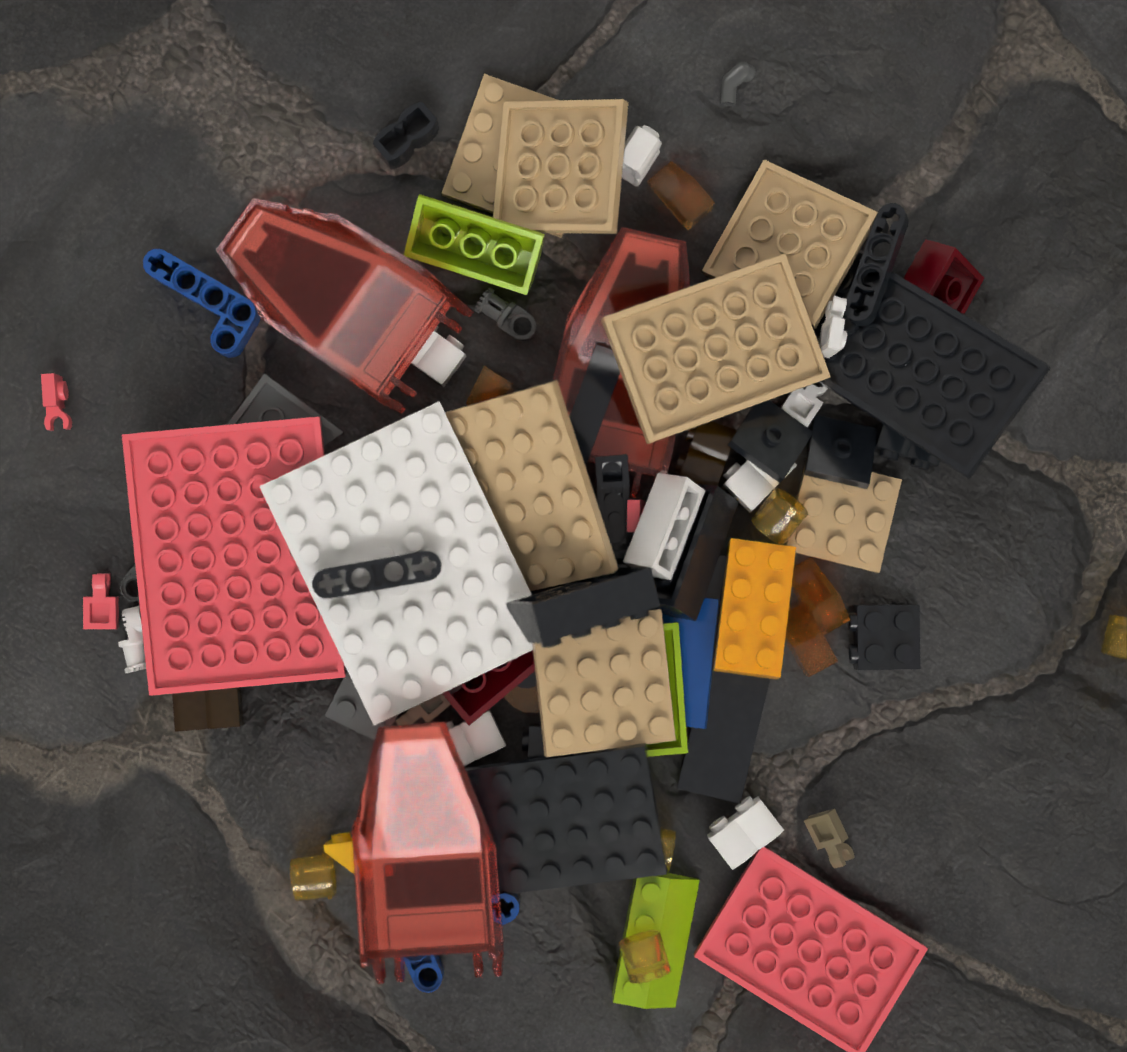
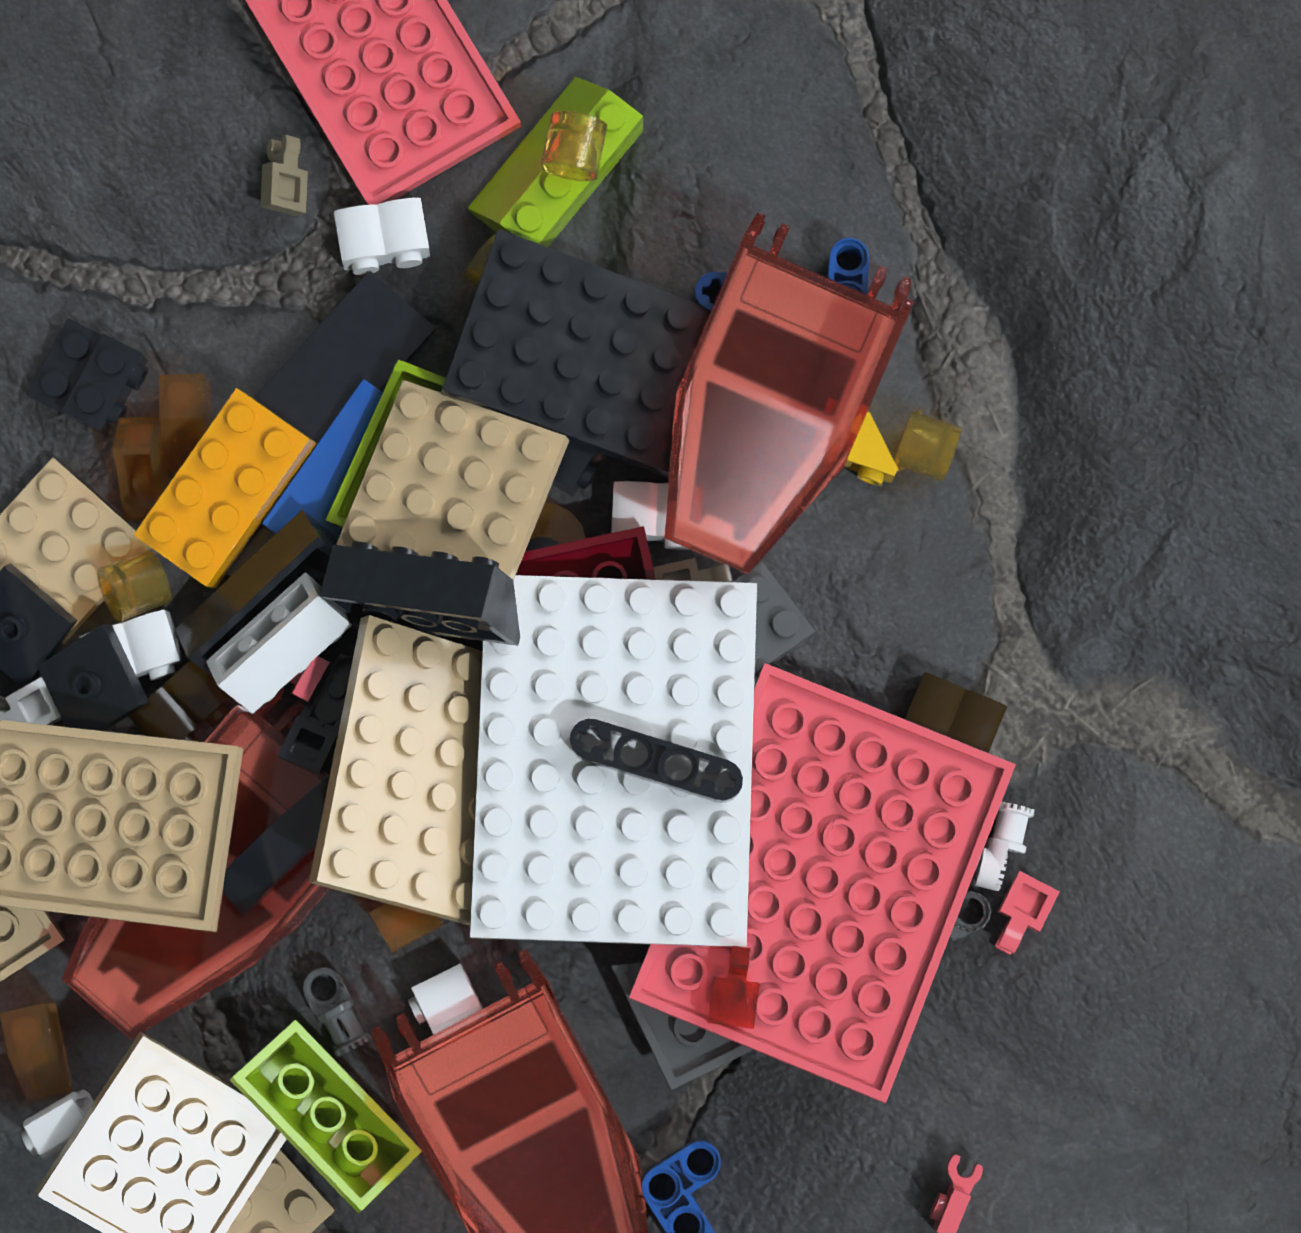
camera: 150 degrees left, 5 degrees down
(250, 450) = (733, 998): none -> clear red plate

